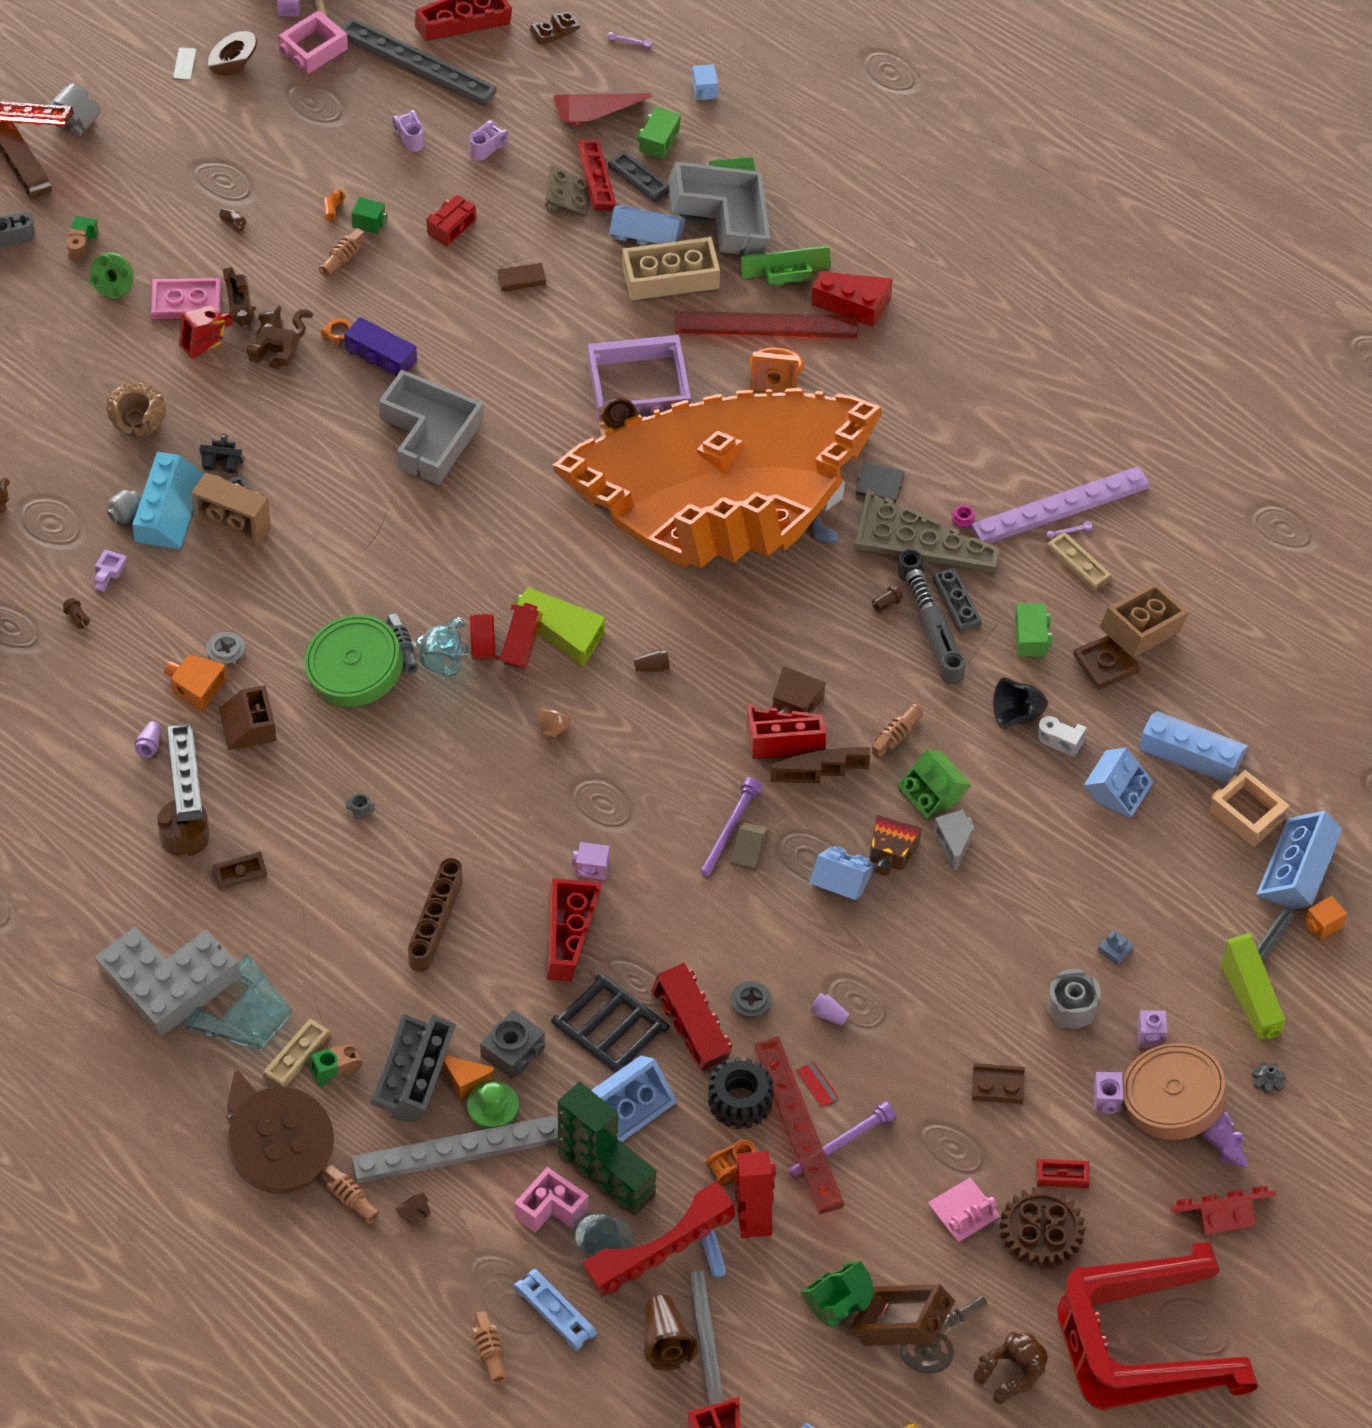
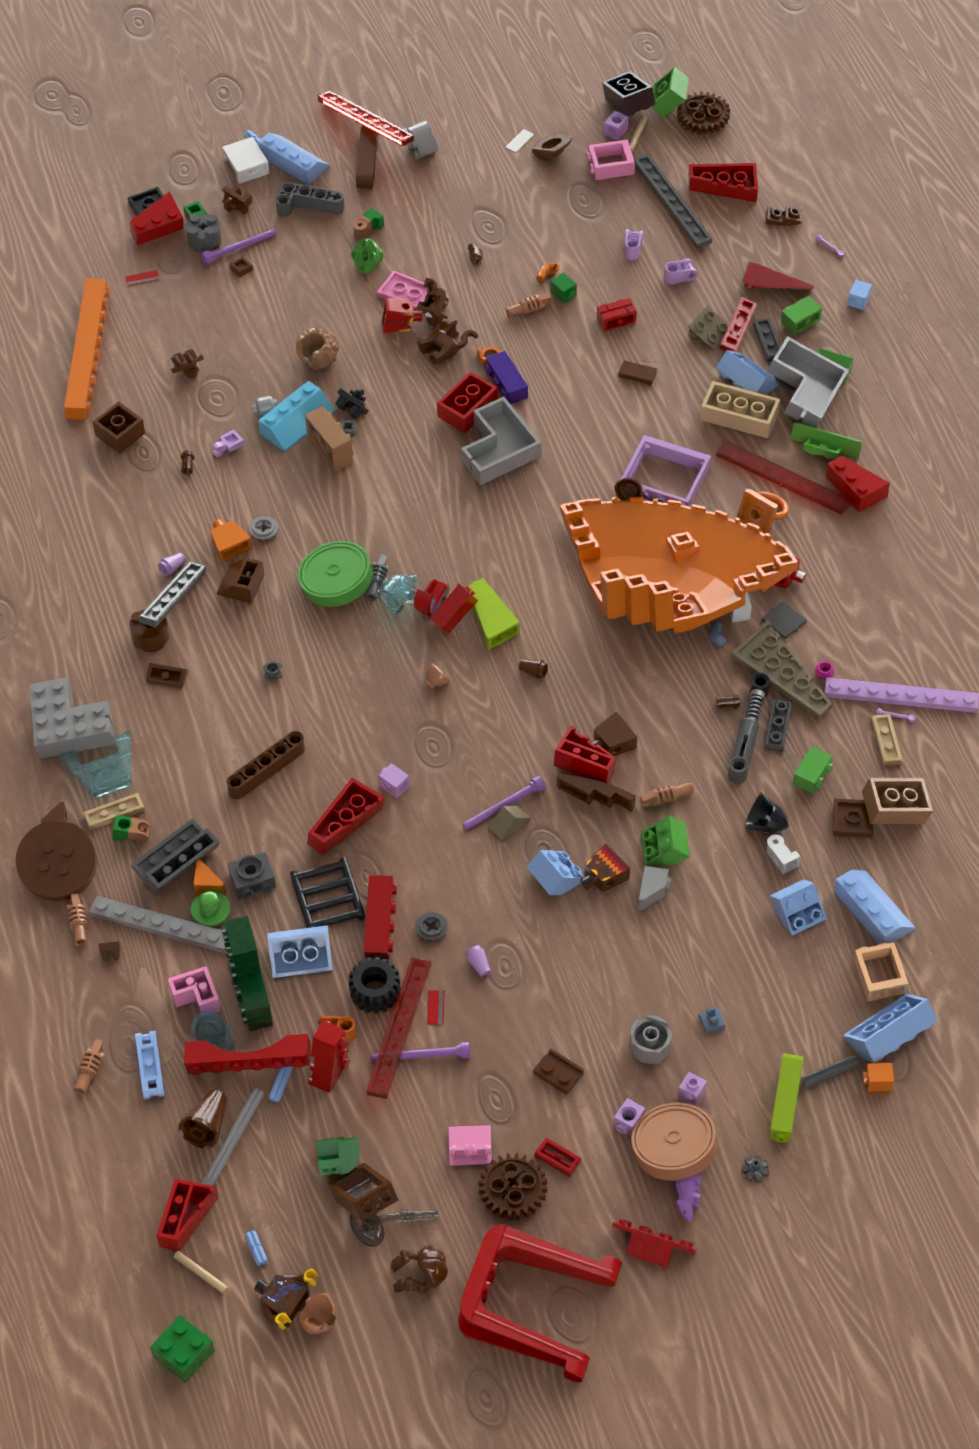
camera: 35 degrees right, 0 degrees up
(357, 395) = (466, 396): none -> red brick

